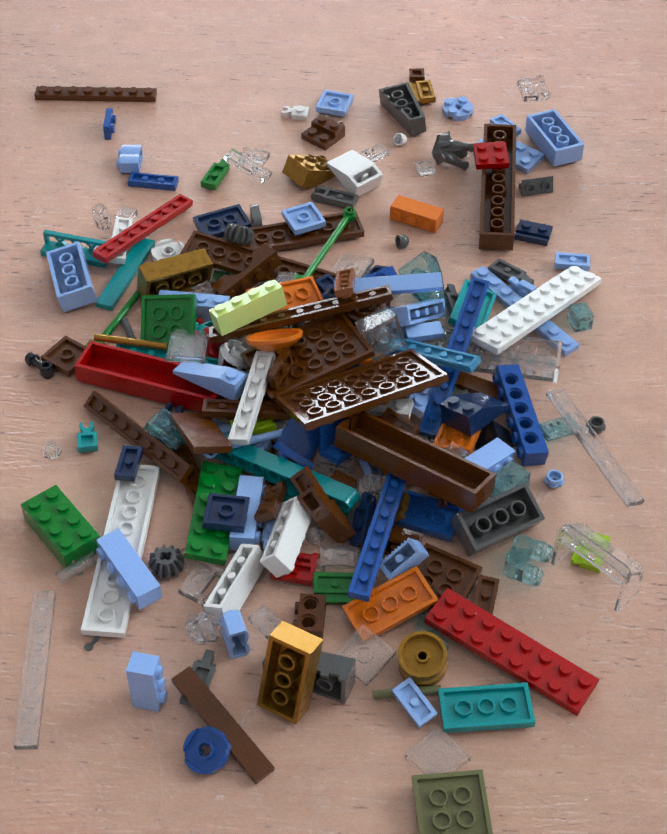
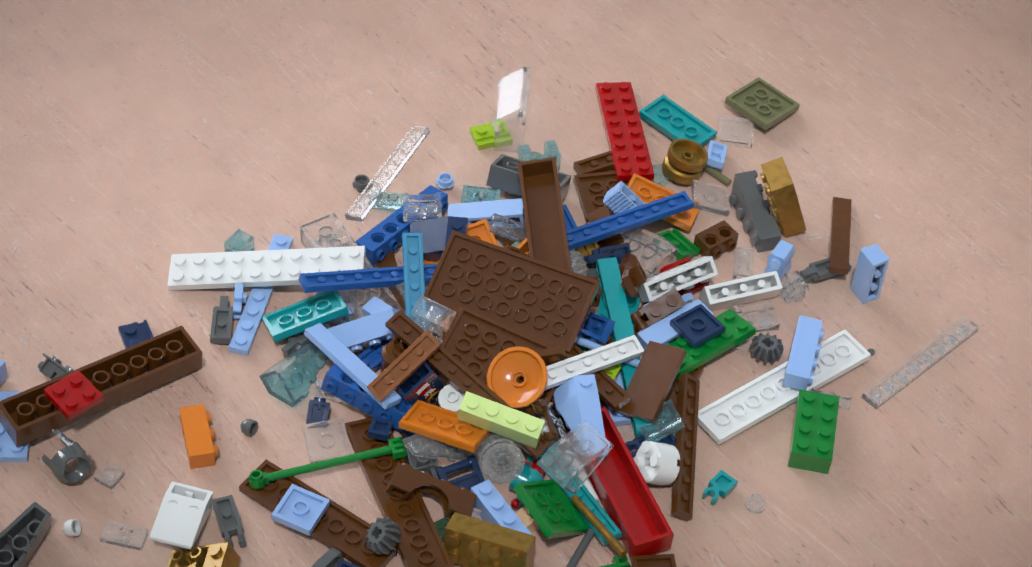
camera: 135 degrees left, 0 degrees up
(128, 463) = (718, 425): dark blue plate -> none
(138, 400) = (657, 462): none -> white brick
(194, 754) = (864, 229): blue plate -> none
(224, 354) = (555, 422): none -> reddish brown flag
(516, 418) = (421, 211): none -> clear plate
(567, 260) = (161, 288): light blue plate -> none

